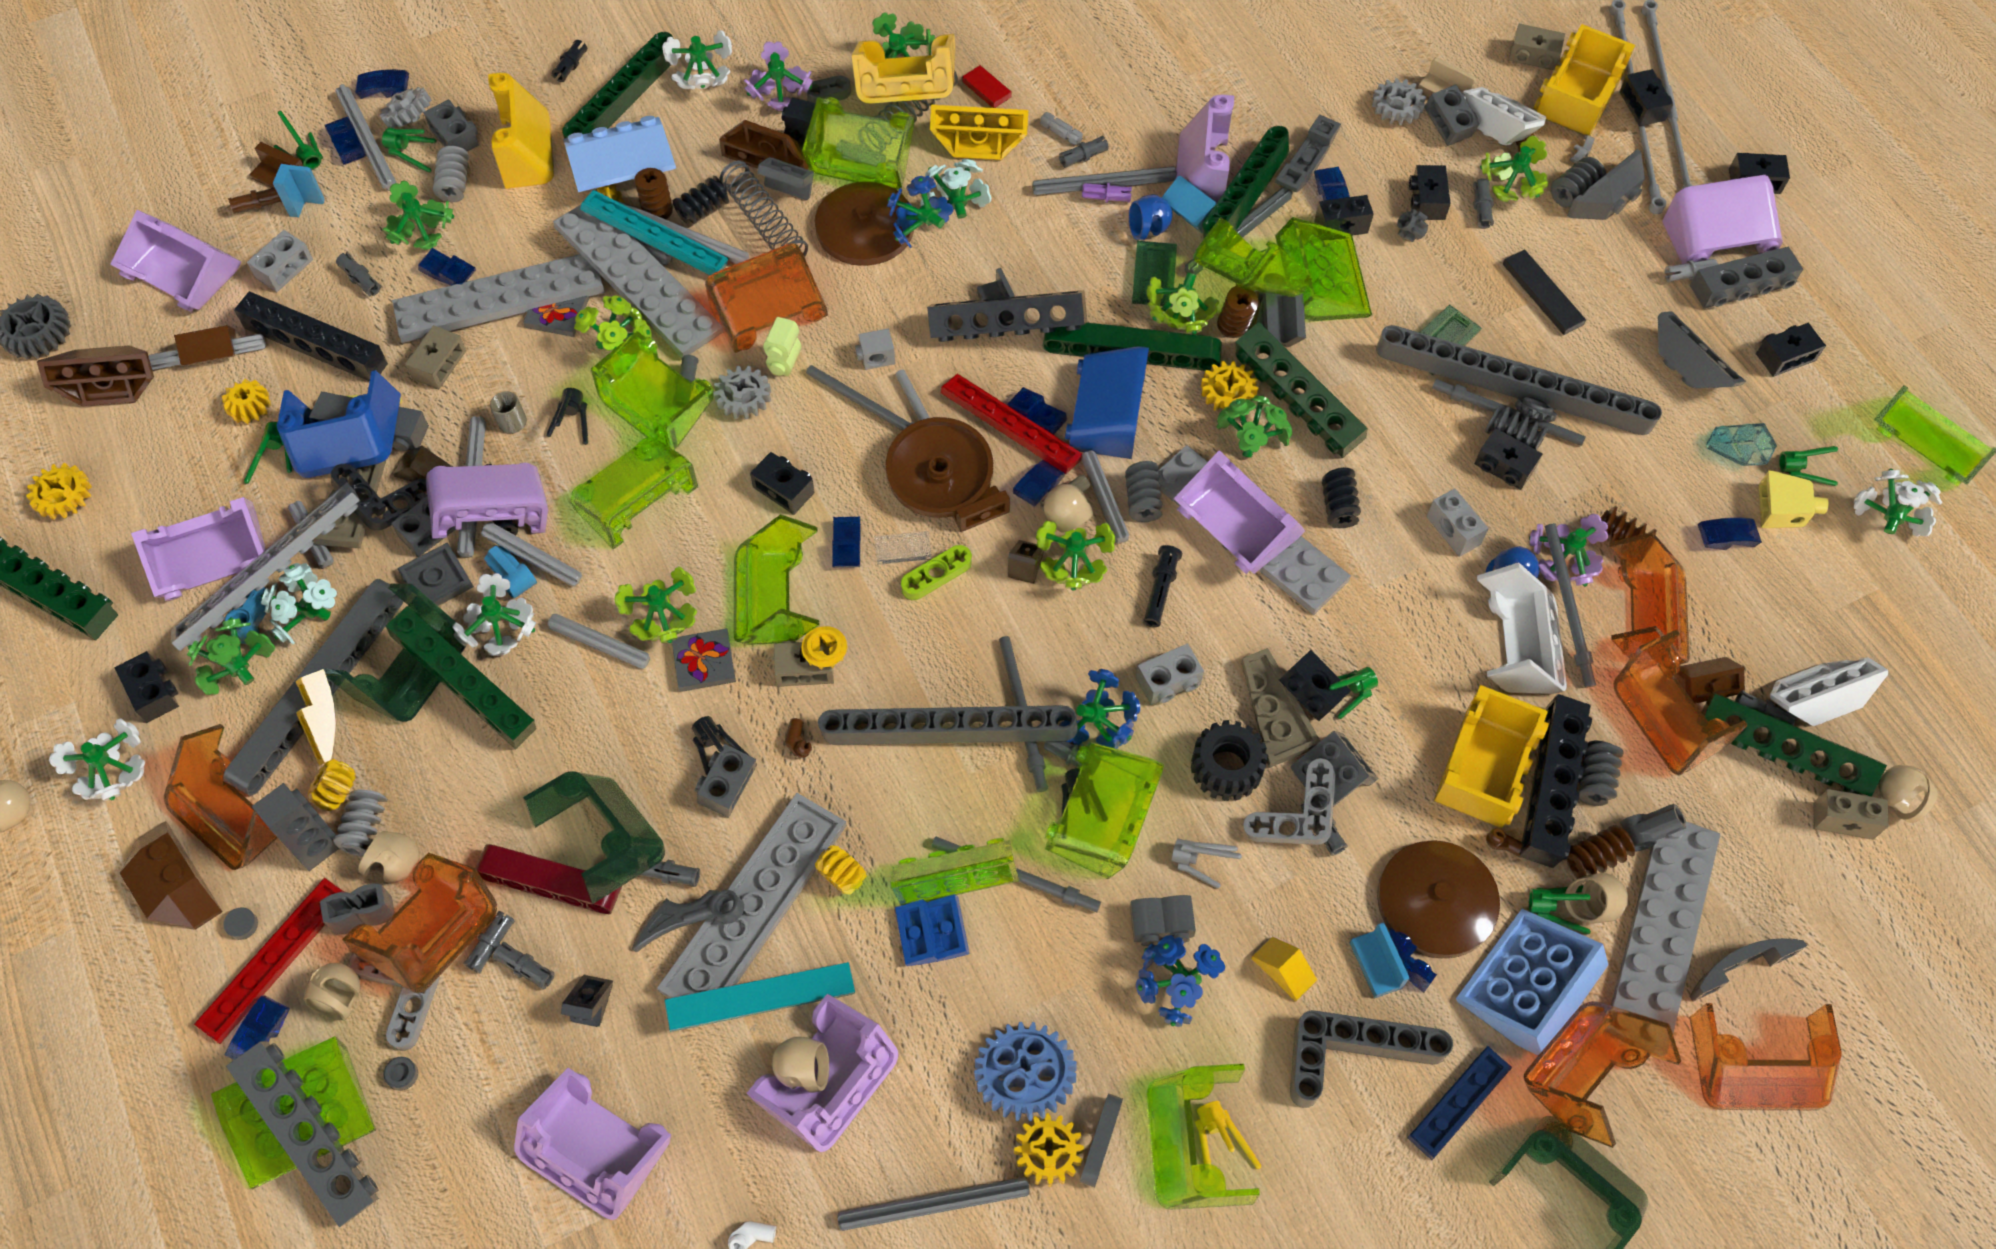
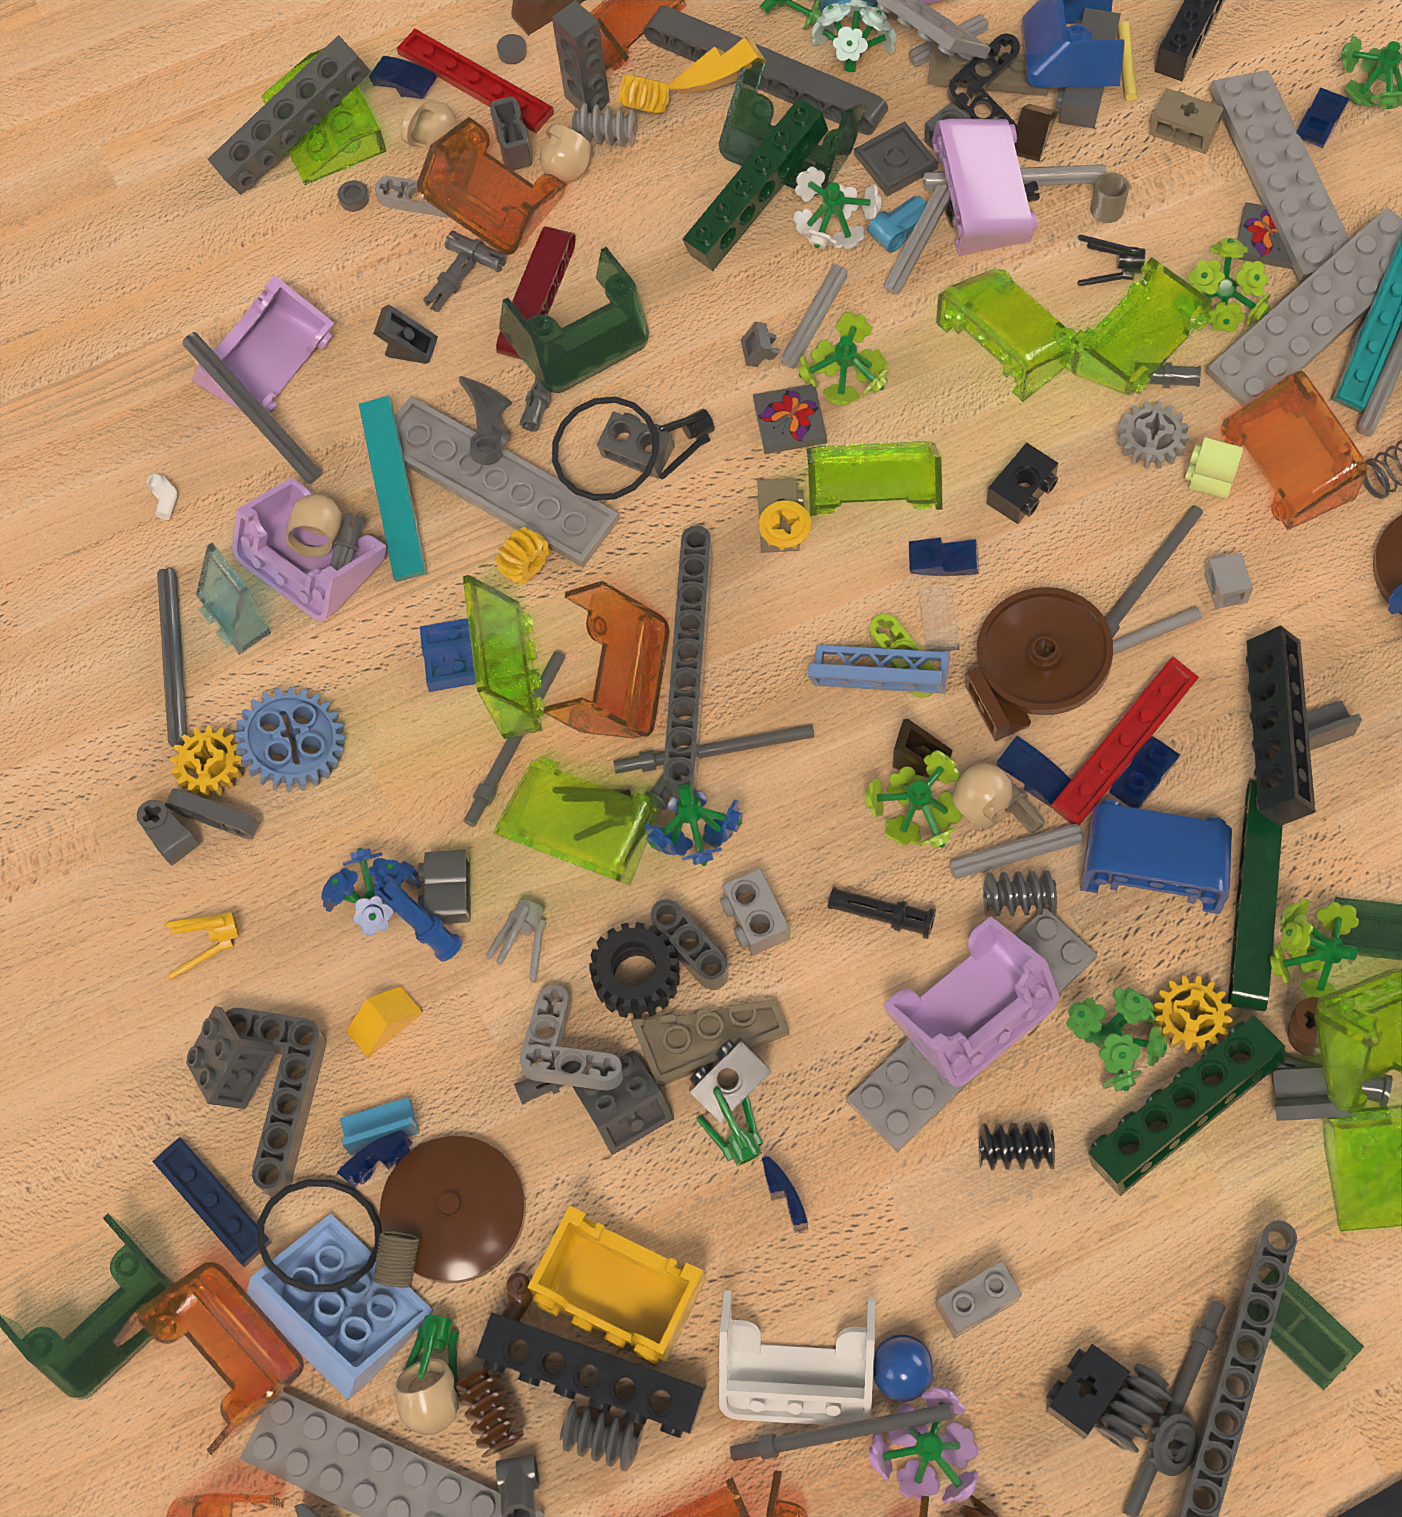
camera: 100 degrees right, 5 degrees up
(358, 274) = (1303, 33): dark grey pin -> none
(627, 684) = (757, 344): none -> dark grey tile
(666, 1137) = (251, 407): none -> dark grey axle
(761, 839) = (608, 496): none -> black piece
(794, 741) = (687, 512): reddish brown arm -> none
(823, 1033) = (346, 541): none -> dark grey axle
(889, 1135) = (229, 603): none -> clear light blue slope
(953, 784) = (629, 665): none -> clear orange windscreen
(964, 584) = (880, 677): none -> medium blue fence
(1126, 1178) = (167, 834): none -> dark grey piece
(1176, 1175) = (244, 886): clear neon green windscreen -> none
(1204, 711) = (698, 958): none -> dark grey beam
(1207, 925) = (427, 927): none -> blue pin
(1341, 1096) = (225, 1064): none -> dark grey bracket
(1391, 652) = (781, 1187): none -> clear blue slope
(1483, 1041) = (317, 1287): none -> black piece
(1495, 929) = (396, 1259): none -> dark tan piece

